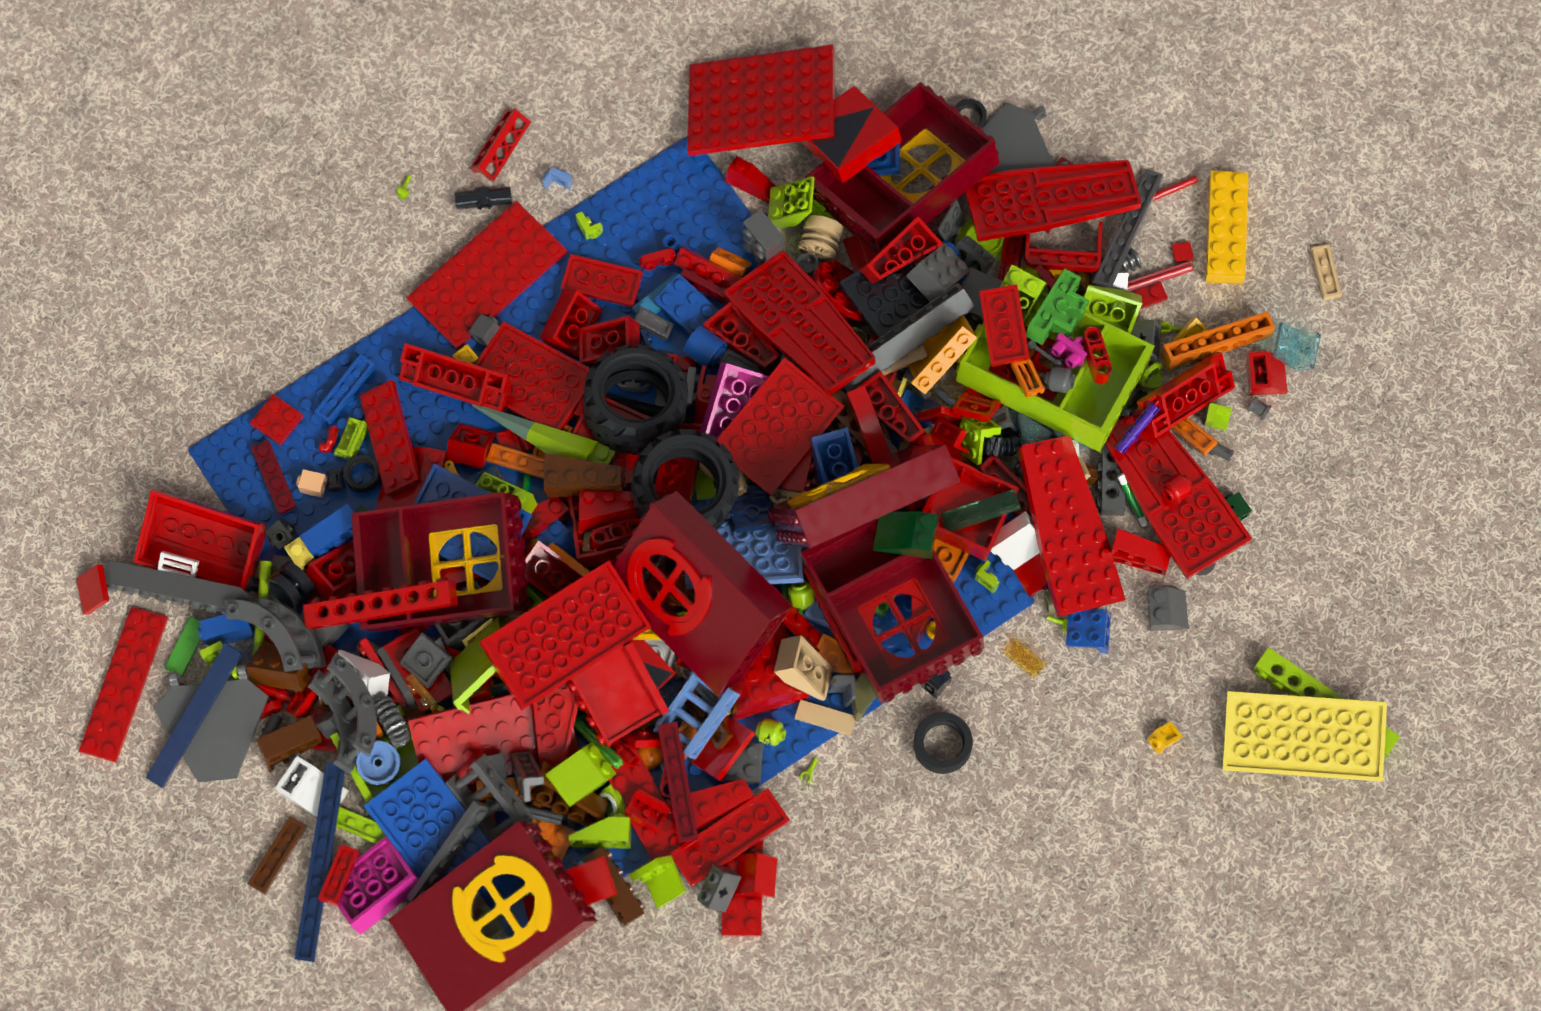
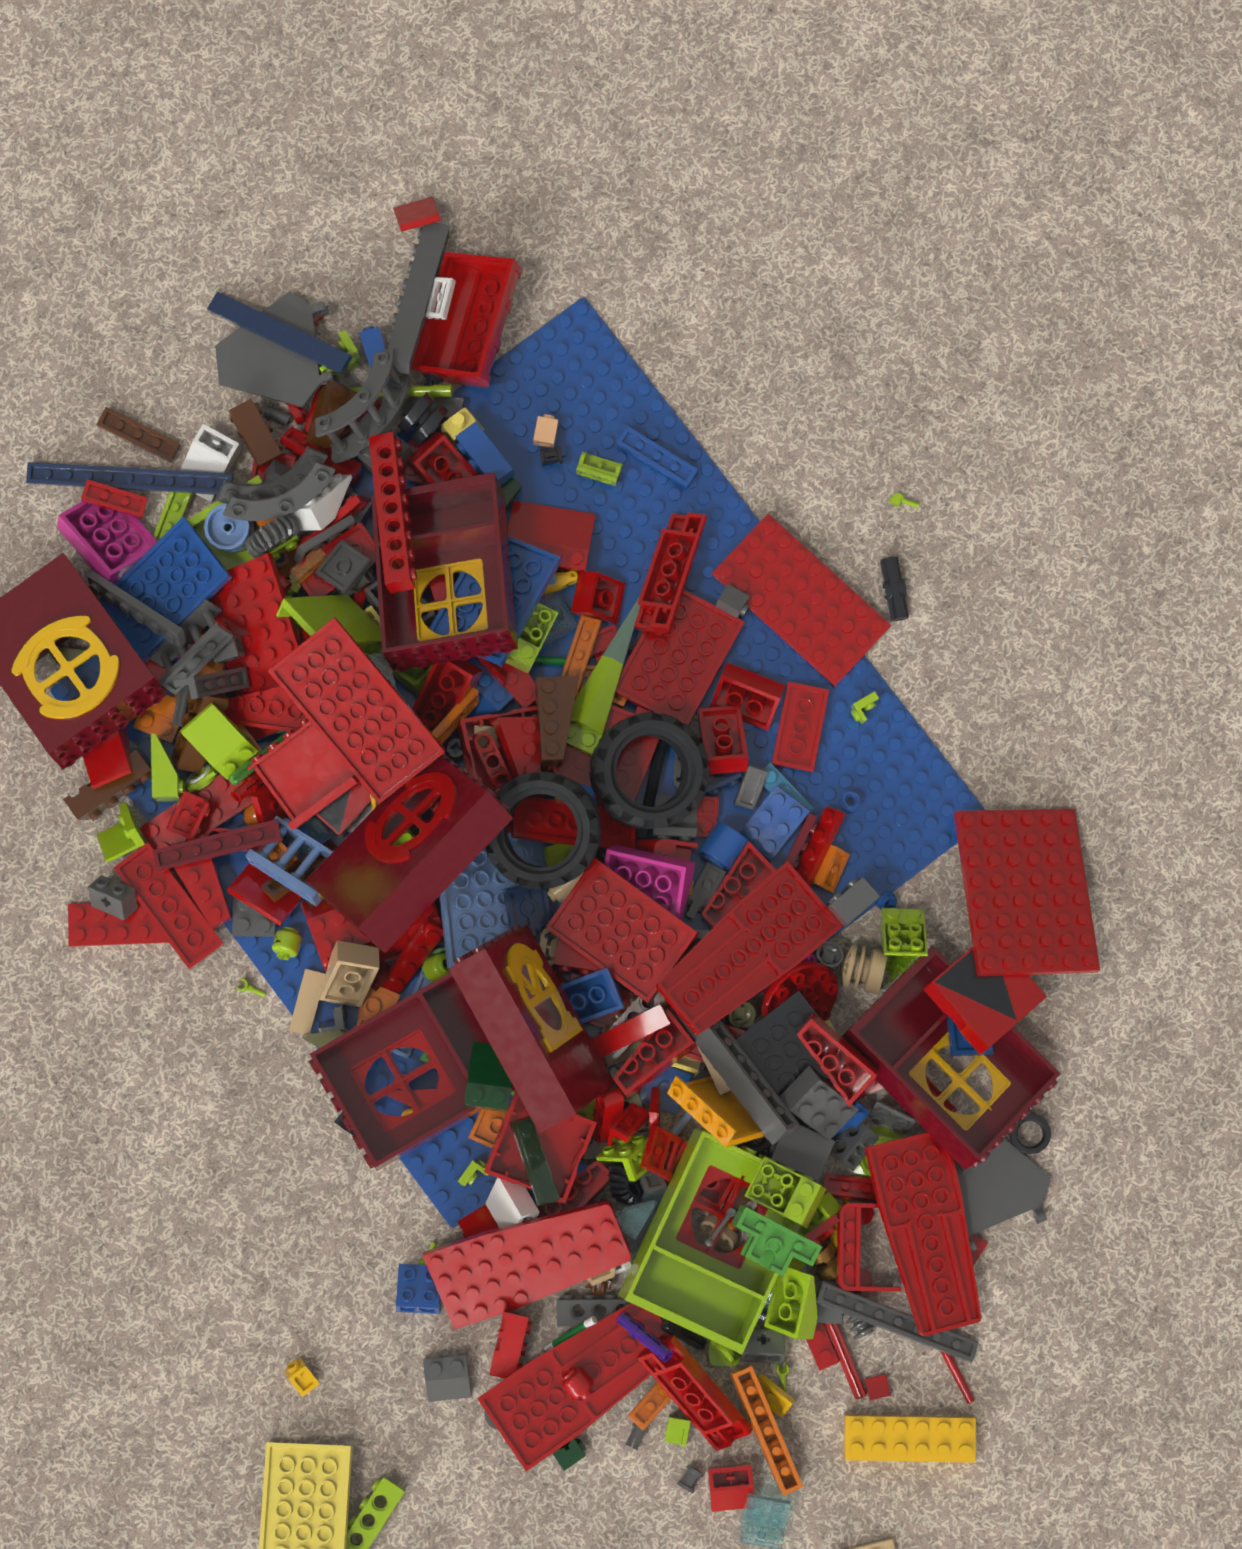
camera: 80 degrees right, 10 degrees up
(123, 684) = (318, 258): red plate -> none
(185, 648) = (360, 317): bright green tile -> none
(274, 477) = (553, 390): dark red plate -> none
(276, 419) = (619, 387): red plate -> none
(281, 533) = (485, 404): pearl dark grey brick -> none
(331, 439) = (589, 443): red arm -> none
(354, 461) = (563, 499): black tyre -> none
(390, 438) = (599, 509): red plate -> none
(466, 354) = (700, 584): yellow plate -> none
(497, 138) = (963, 596): red fence -> none
(560, 177) = (924, 674): medium blue bracket -> none
(662, 257) = (825, 778): red plate -> none
(749, 179) = (934, 885): red slope -> none
(757, 875) = (128, 937): red slope -> none
(857, 252) = (849, 1013): red panel -> none
(950, 720) = (257, 1131): black tyre -> none
(1004, 325) = (746, 1179): red plate -> none
(1025, 659) = (385, 1219): clear yellow plate -> none
(1033, 391) = (670, 1215): orange tile -> none
(1060, 379) = (685, 1245): dark grey head -> none
(1071, 348) = (717, 1262): dark pink hips -> none
(1096, 363) = (731, 1287): red beam -> none

